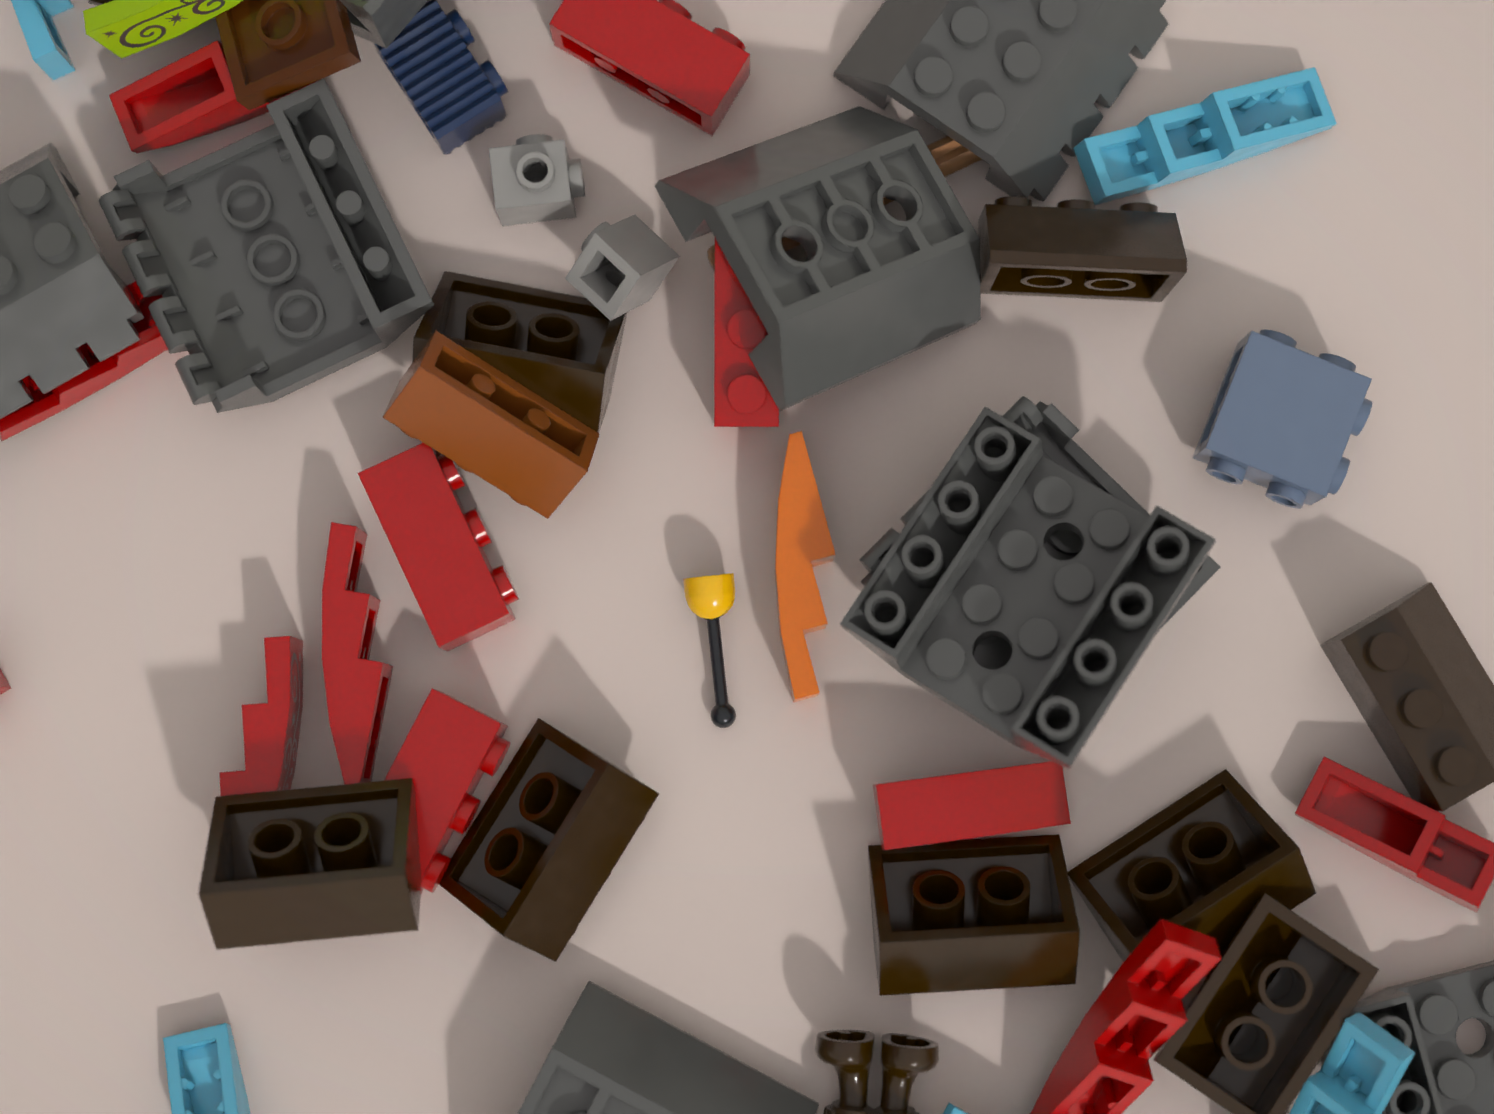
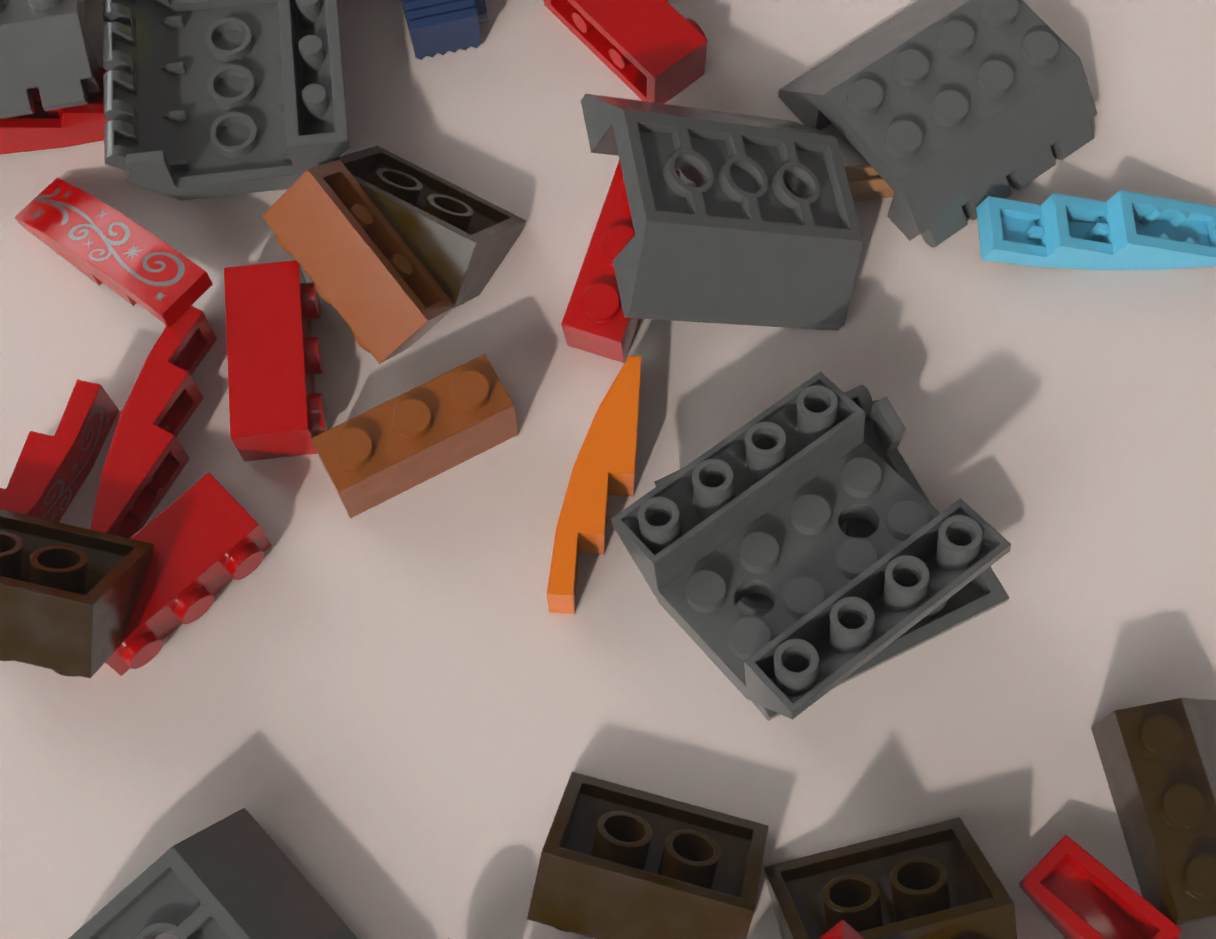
camera: 20 degrees right, 15 degrees down
(231, 484) = (114, 250): none -> slope
(535, 180) = (482, 93): light grey brick -> none
(547, 840) = (262, 658): dark brown slope -> none
(611, 578) = (417, 435): none -> dark orange brick
(621, 266) = (530, 176): light grey brick -> none
(711, 599) = (505, 486): hinge -> none
(970, 805) = (686, 759): red slope -> none
(1079, 250) = (953, 291): dark brown slope -> none
(1284, 419) = (1112, 494): sand blue brick -> none

